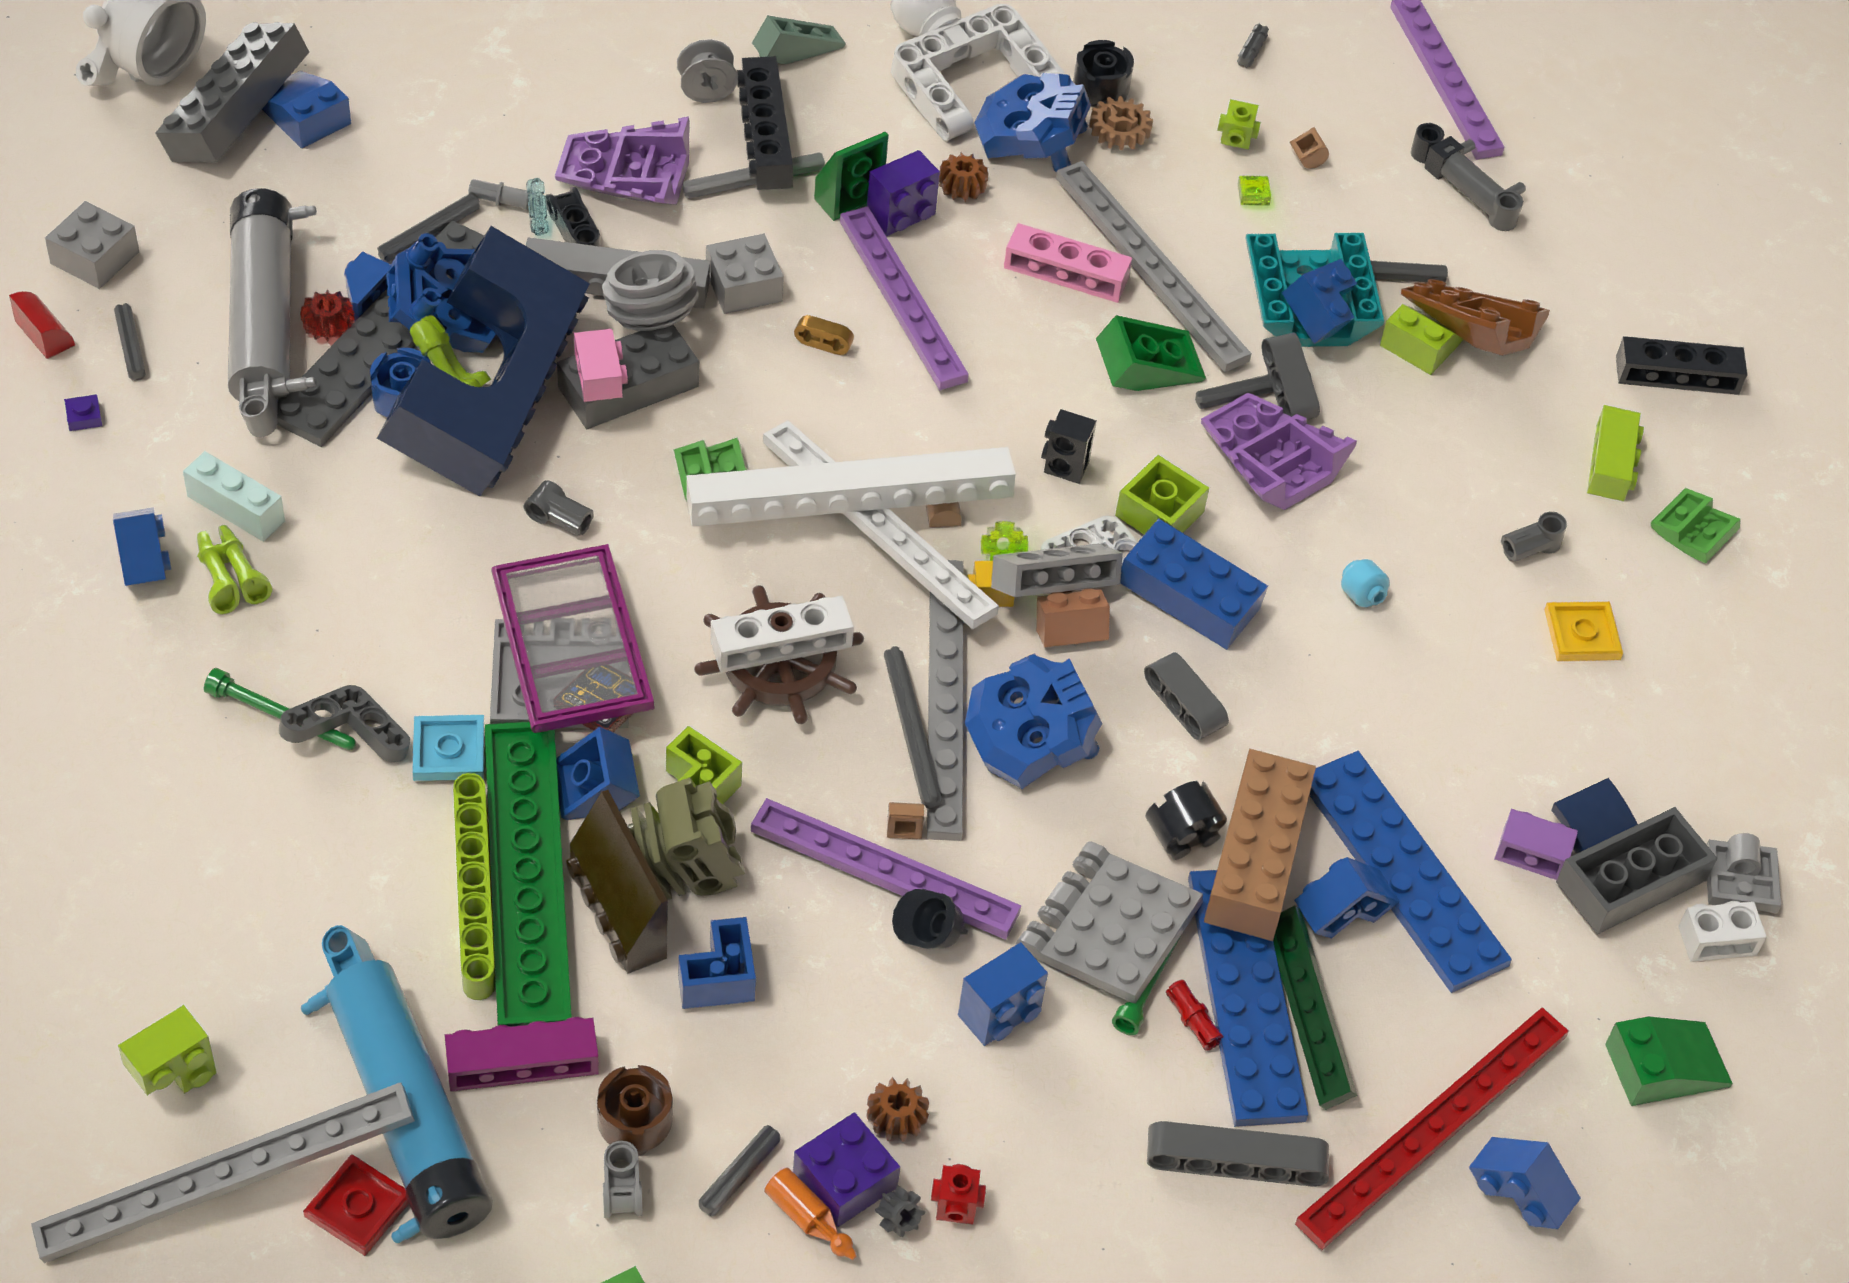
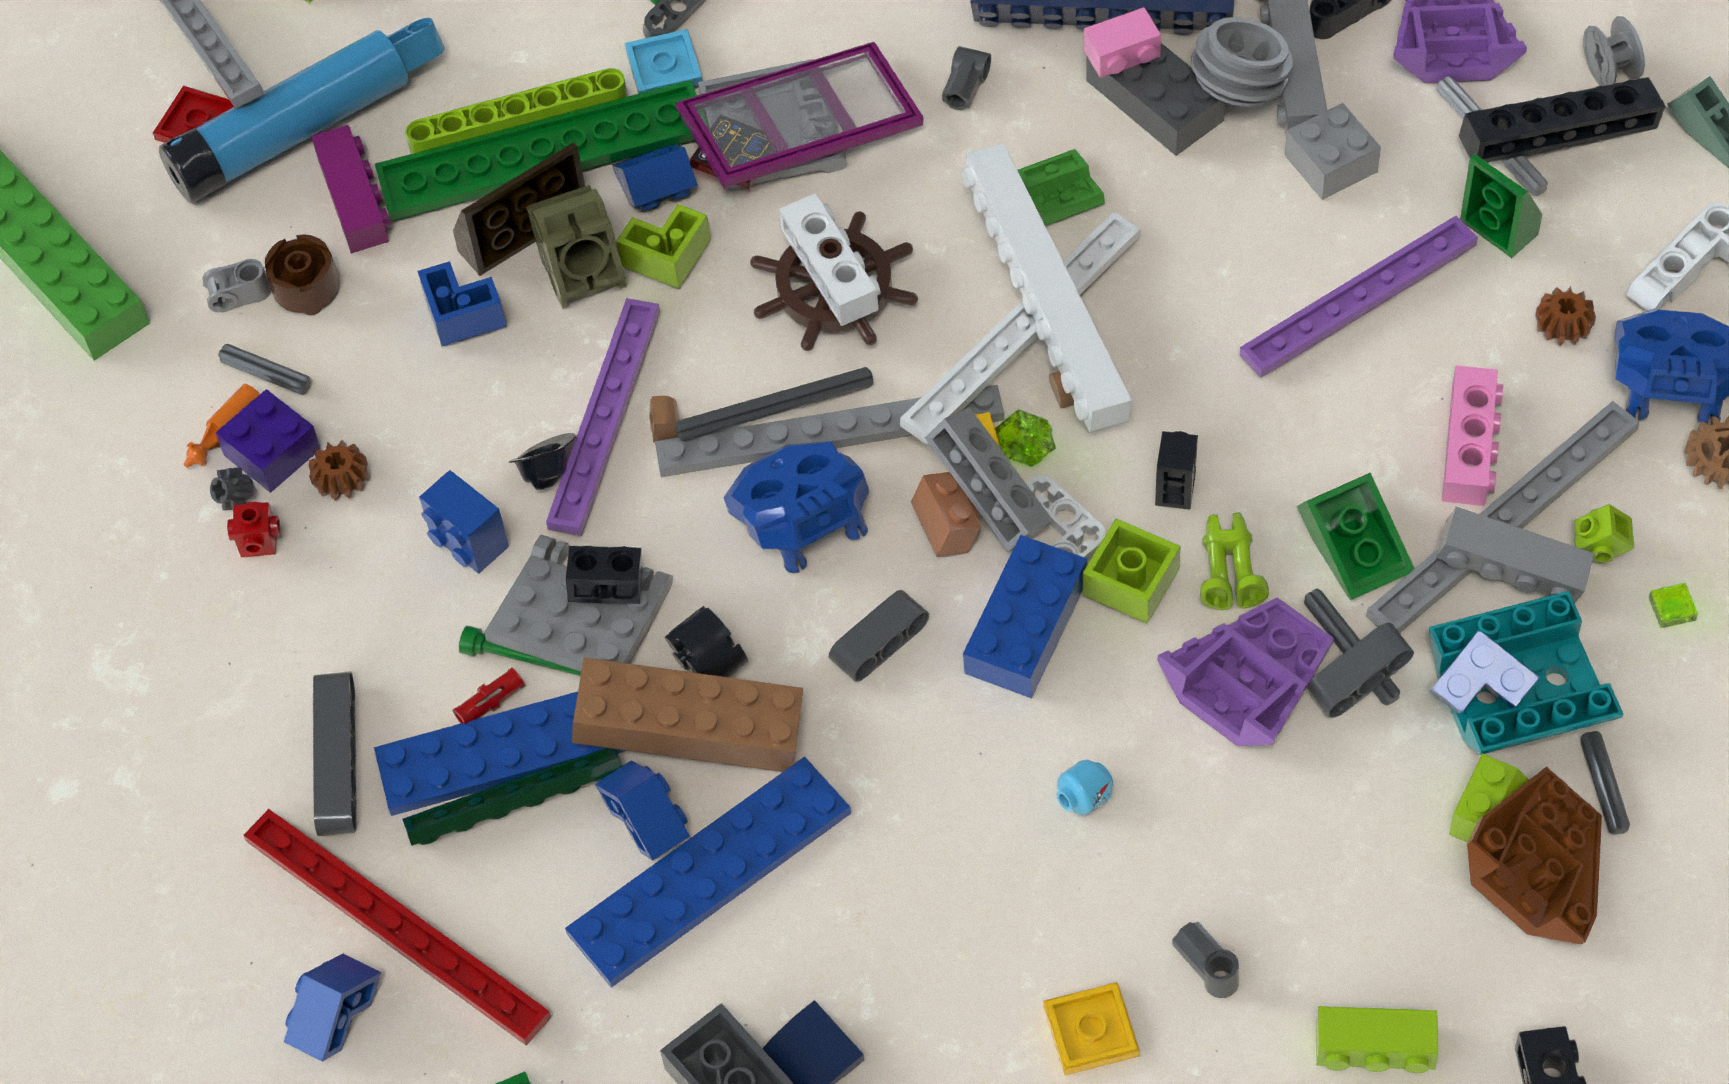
camera: 90 degrees right, 5 degrees up
(824, 335) = (1274, 237): pearl gold beam -> none
(903, 192) = (1499, 257): dark purple brick -> none
(1095, 880) = (604, 574): none -> black brick
(1133, 436) = (1217, 591): none -> lime piece
(1184, 196) = (1605, 533): none -> lime brick
(1202, 260) = (1513, 555): none -> light grey brick
(1535, 844) = (763, 990): medium lavender brick -> none

